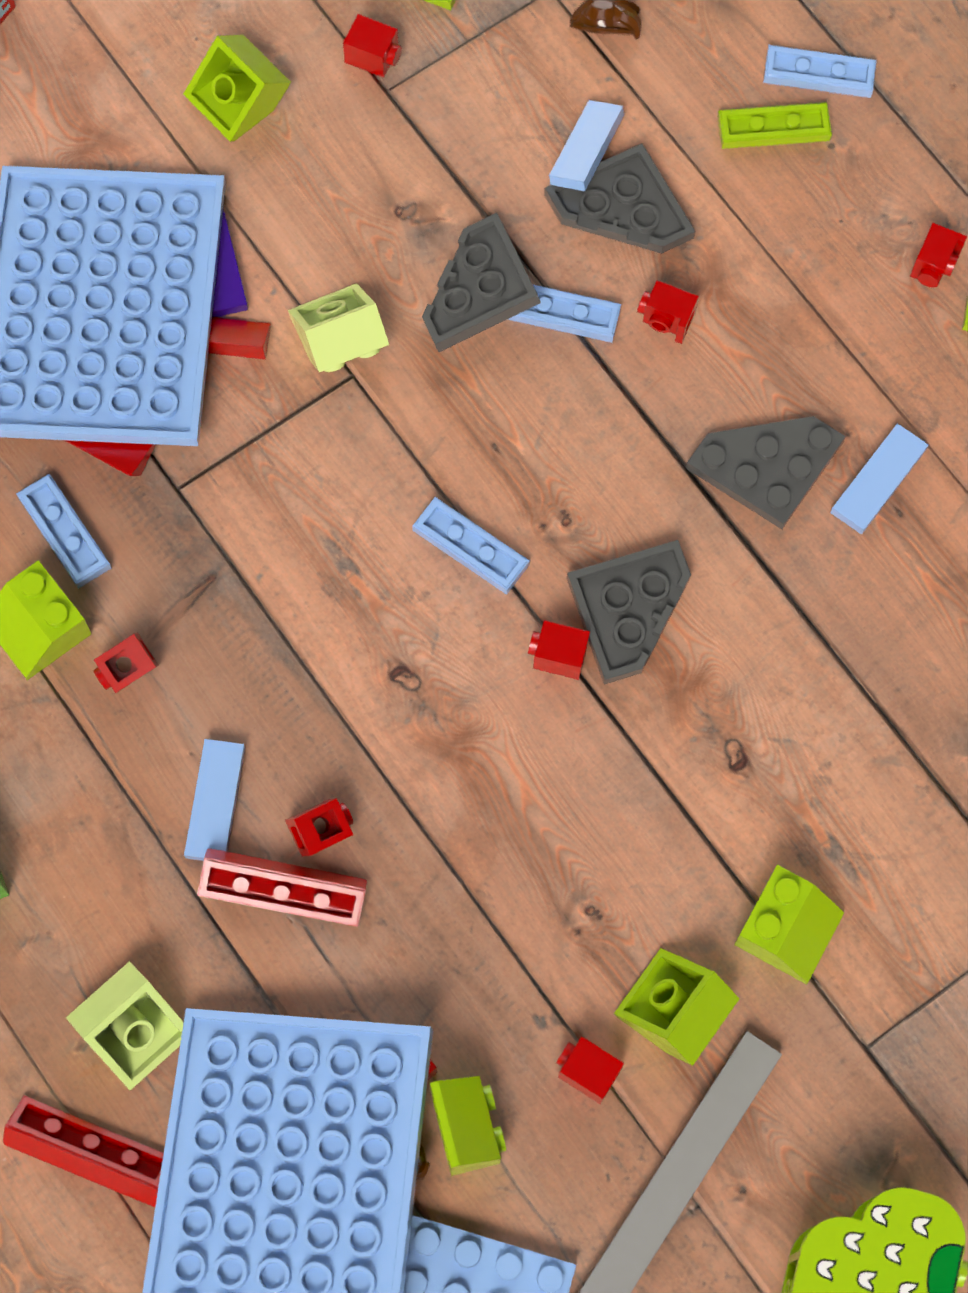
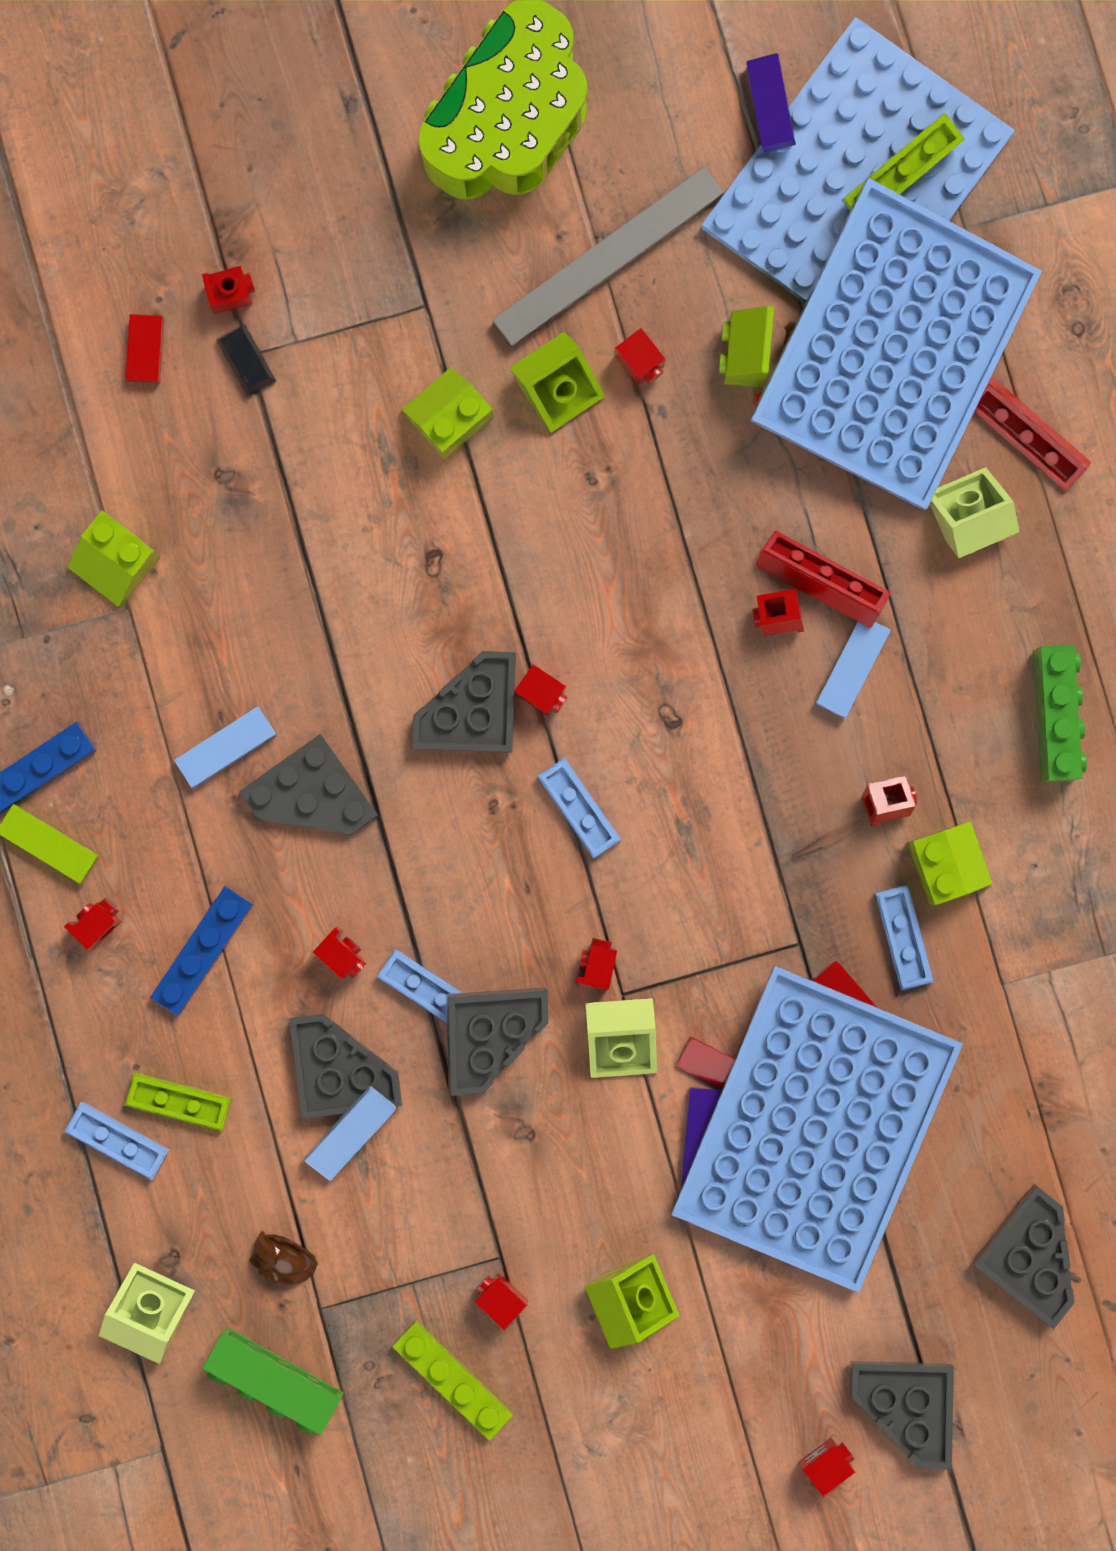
camera: 155 degrees left, 15 degrees up
(390, 387) = (597, 964): none -> red brick
(814, 272) = (201, 950): none -> blue plate

